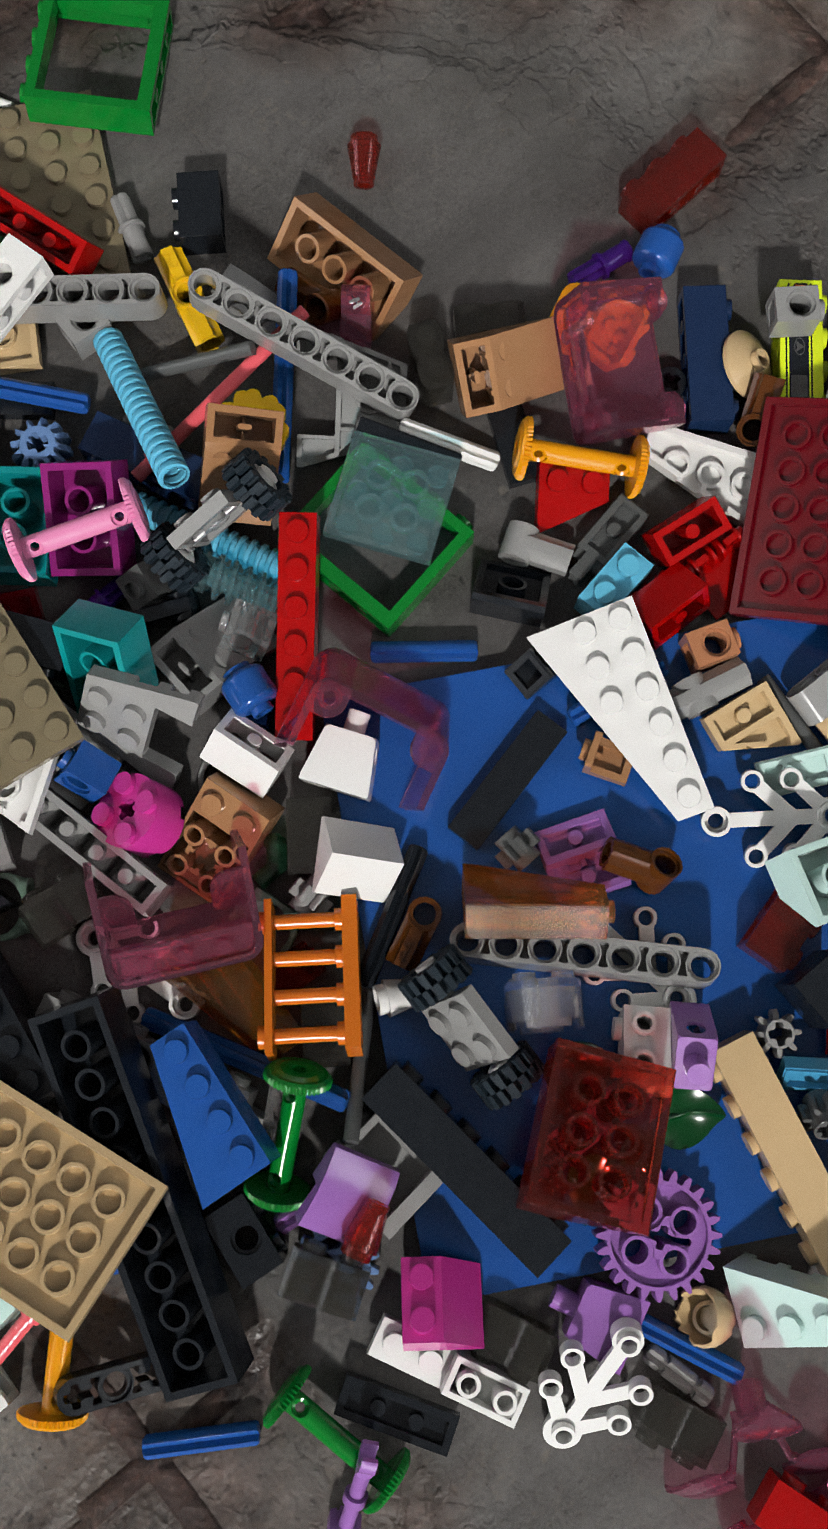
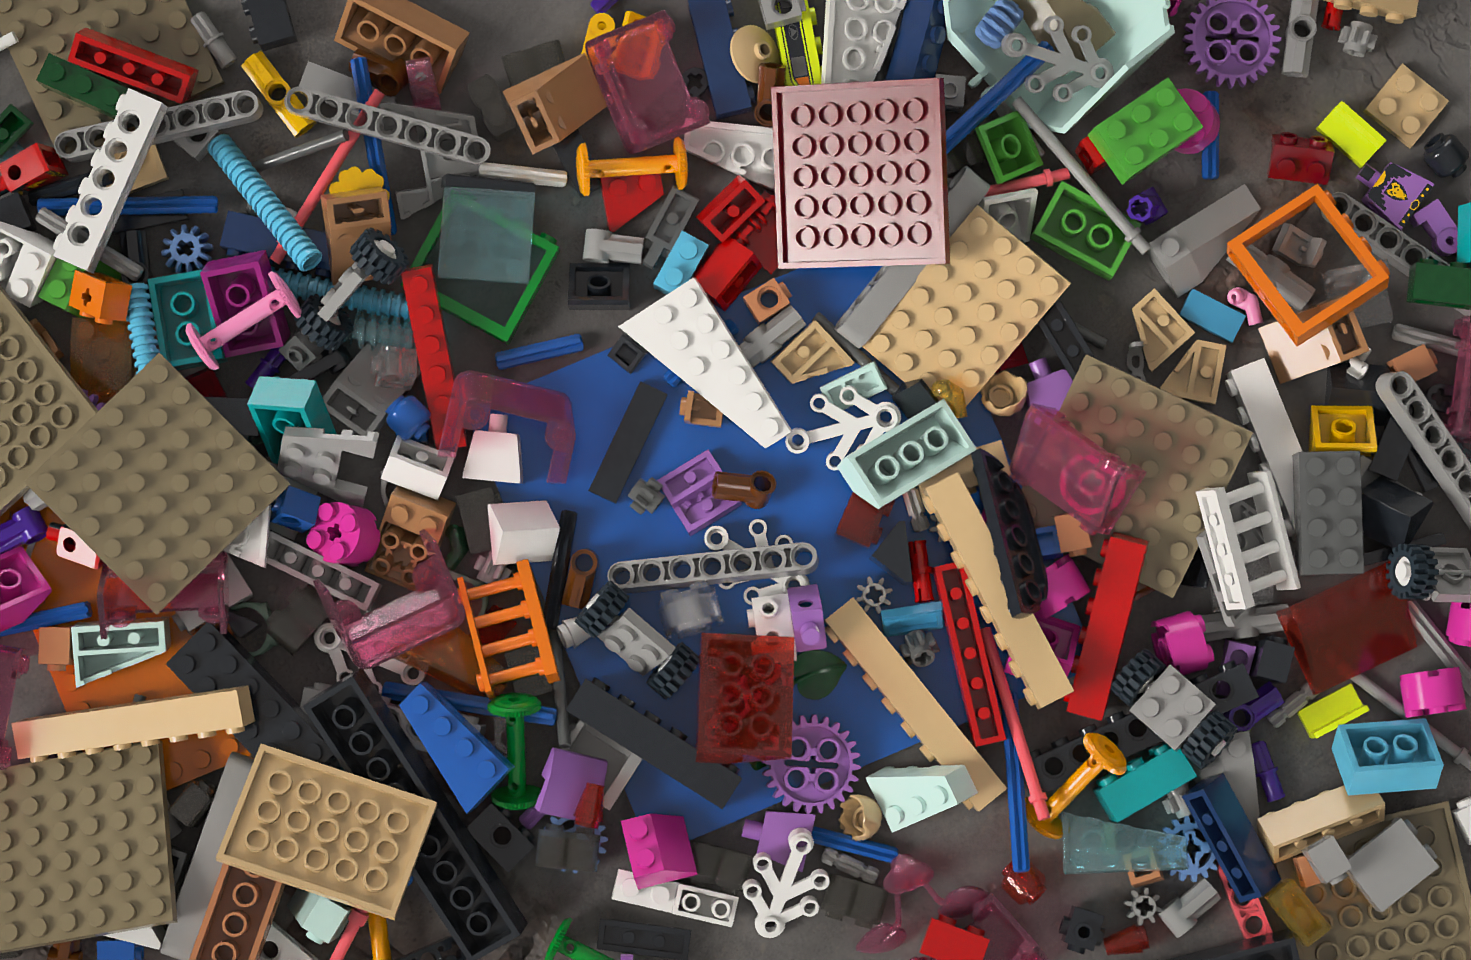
camera: 20 degrees left, 5 degrees up
(532, 906) = (665, 538): clear orange slope -> none

